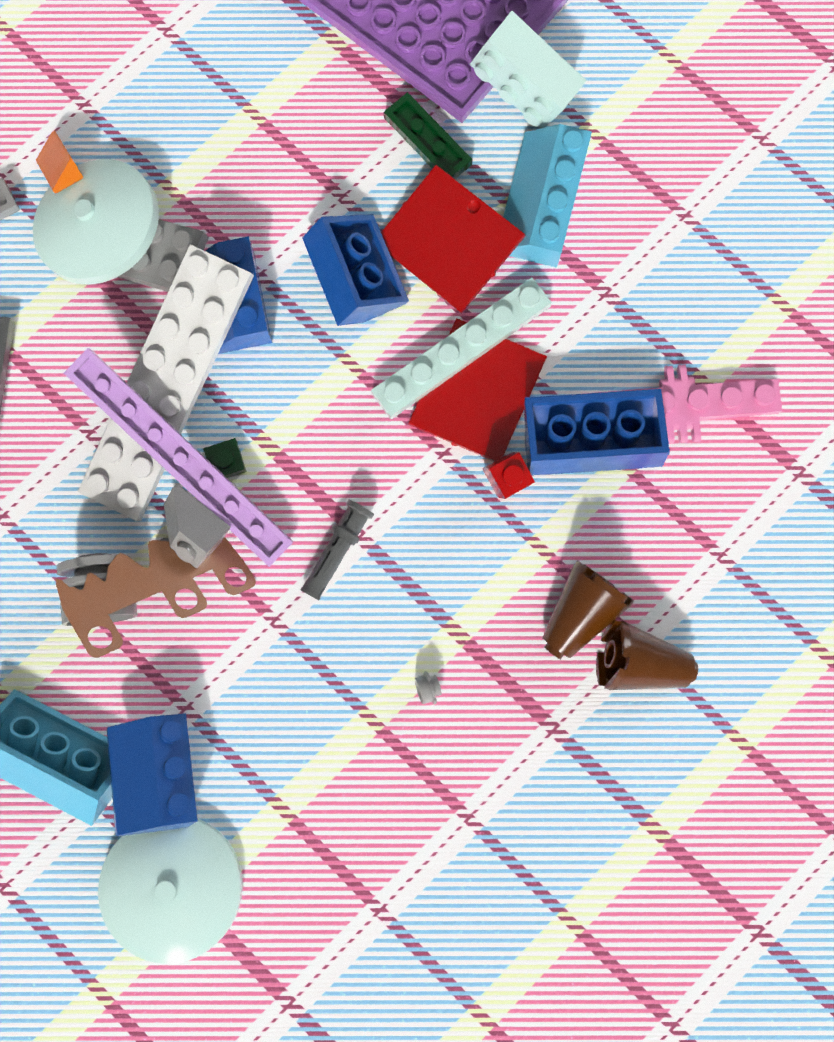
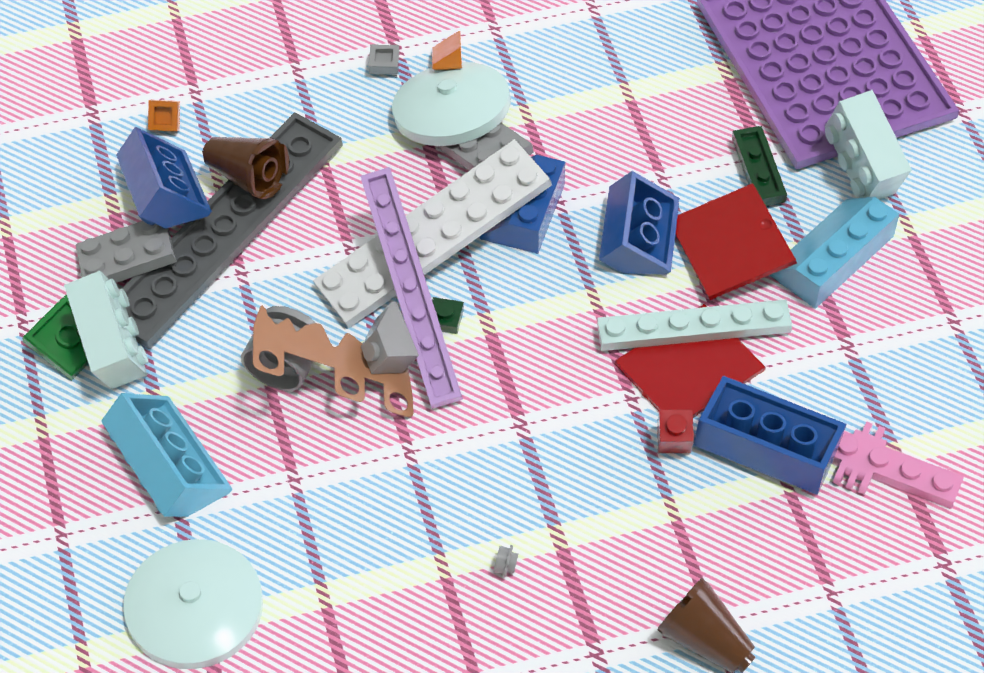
camera: 30 degrees right, 25 degrees down
(151, 775) = (237, 499): blue slope -> none
(344, 535) = (507, 413): dark grey pin -> none
(583, 611) = (677, 562): reddish brown cone -> none

